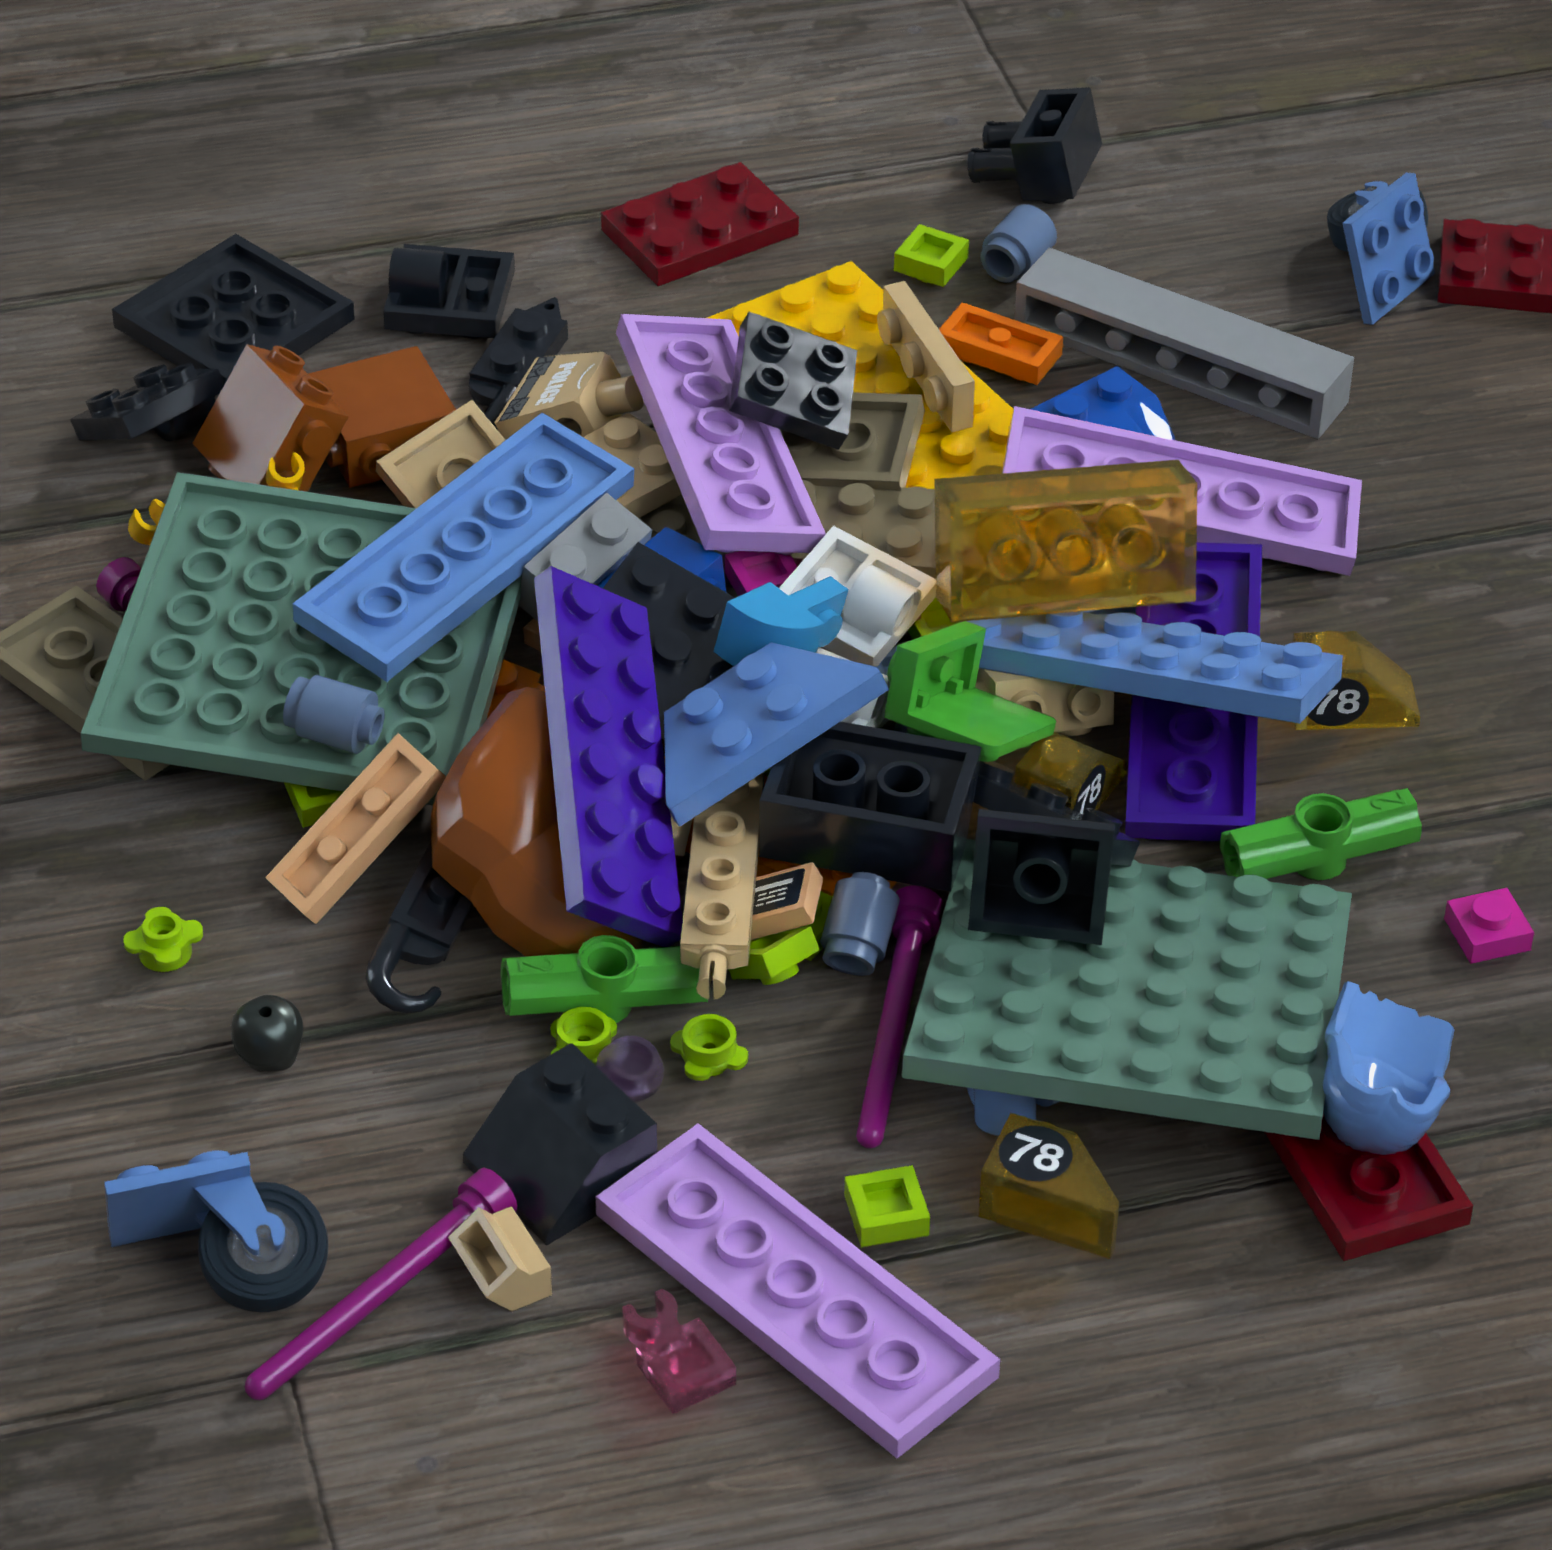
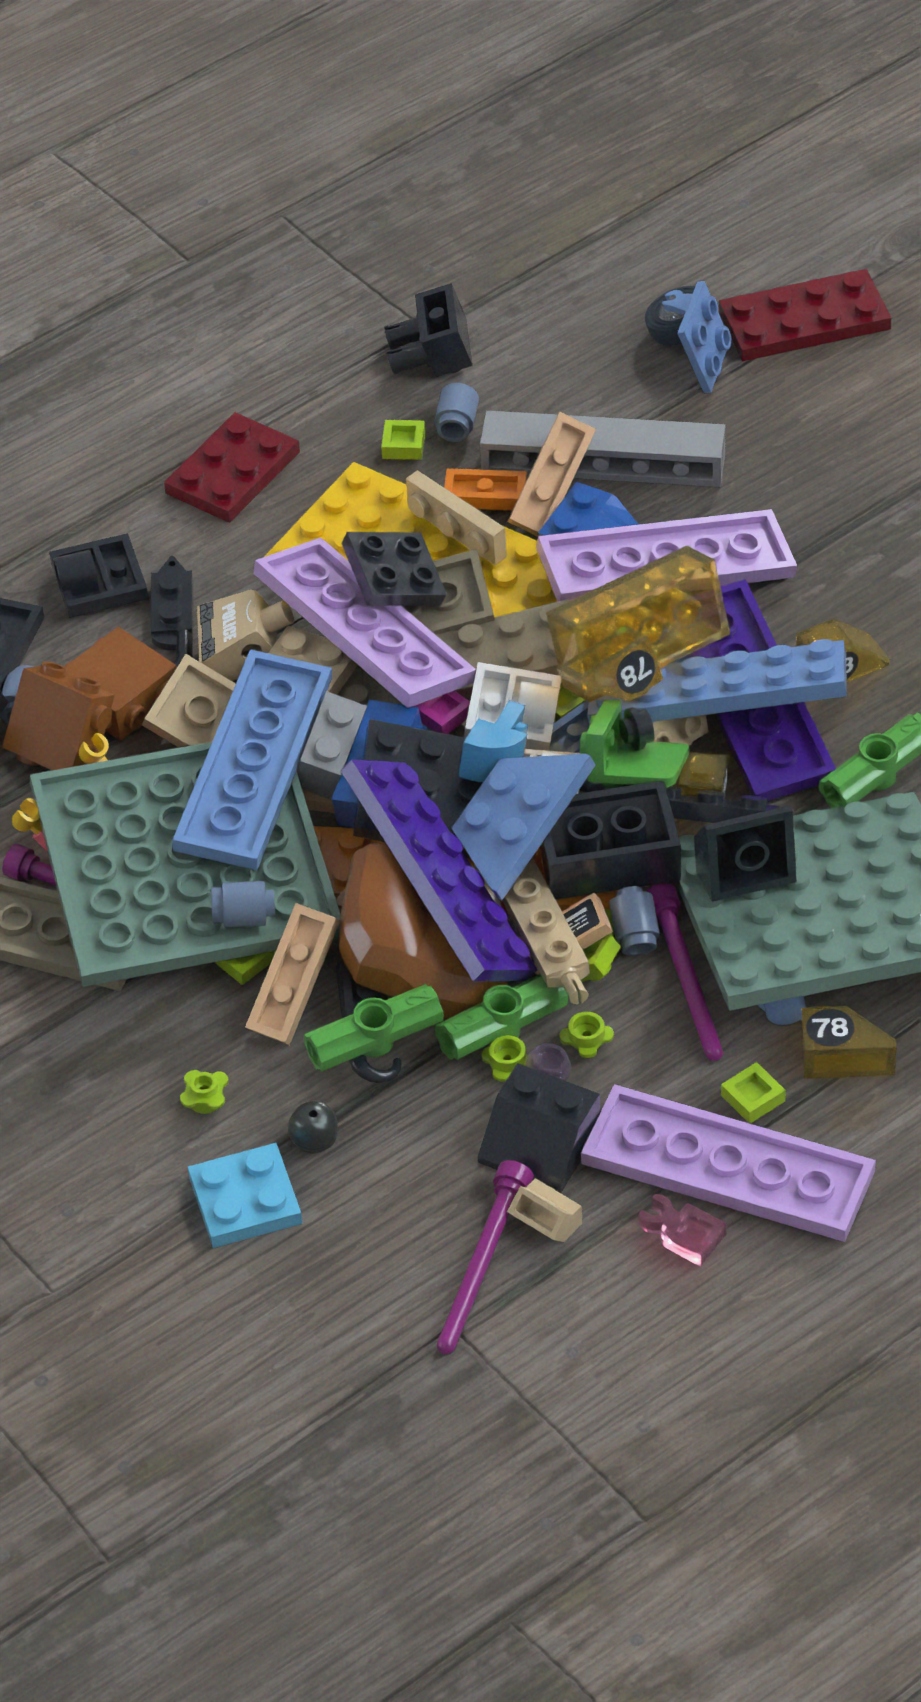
camera: 20 degrees left, 5 degrees up
(127, 1089) = (244, 1195): none -> medium azure plate
(256, 1240) = (395, 1256): plate -> none
(410, 929) = (355, 1037): none -> bright green piece
(990, 672) = (636, 728): none -> black plate
(994, 580) = (615, 666): none -> clear yellow slope
(1088, 340) = (551, 473): none -> light nougat plate

